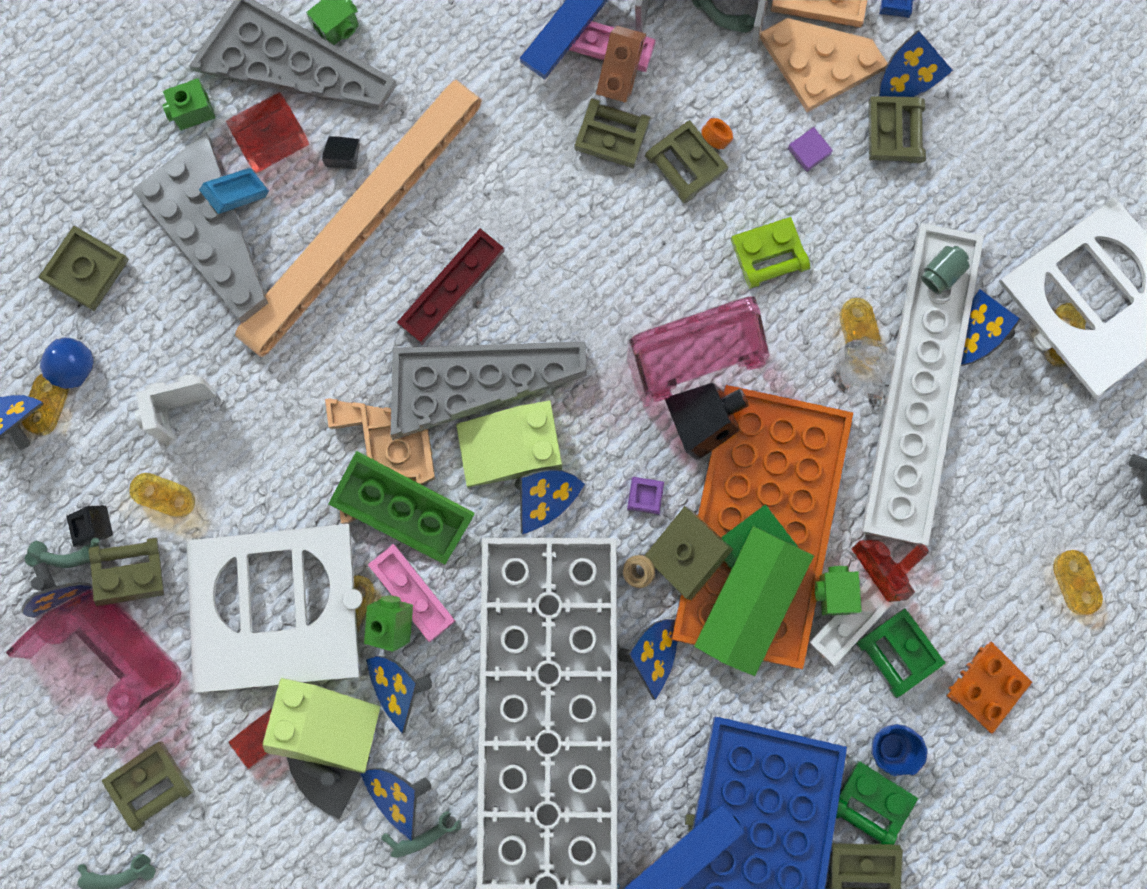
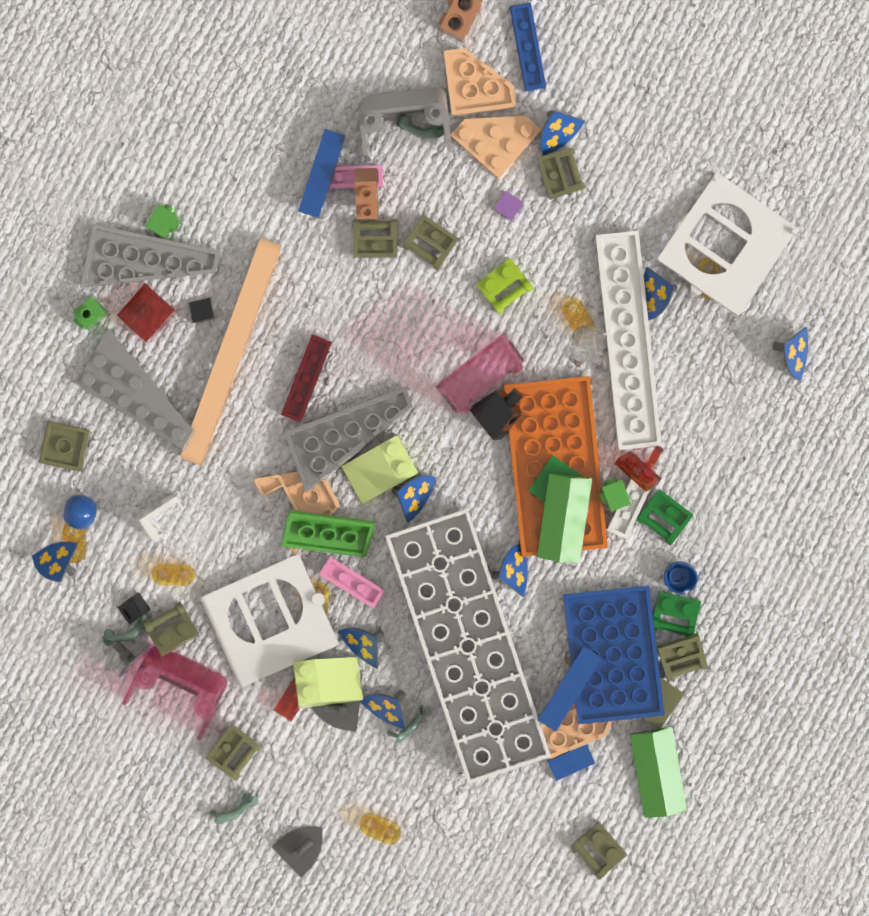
camera: 15 degrees left, 10 degrees up
(234, 190) = (144, 363): dark azure tile -> none
(388, 623) = (345, 606): bright green brick -> none
(631, 575) = (486, 526): tan plate -> none
(645, 495) = (476, 471): medium lavender tile -> none
(688, 553) = (514, 501): olive plate -> none
(717, 133) = (444, 216): orange tile -> none
(945, 269) = (620, 264): sand green brick -> none
(989, 687) = (725, 520): orange hinge -> none
(1075, 583) = (761, 436): clear yellow plate -> none

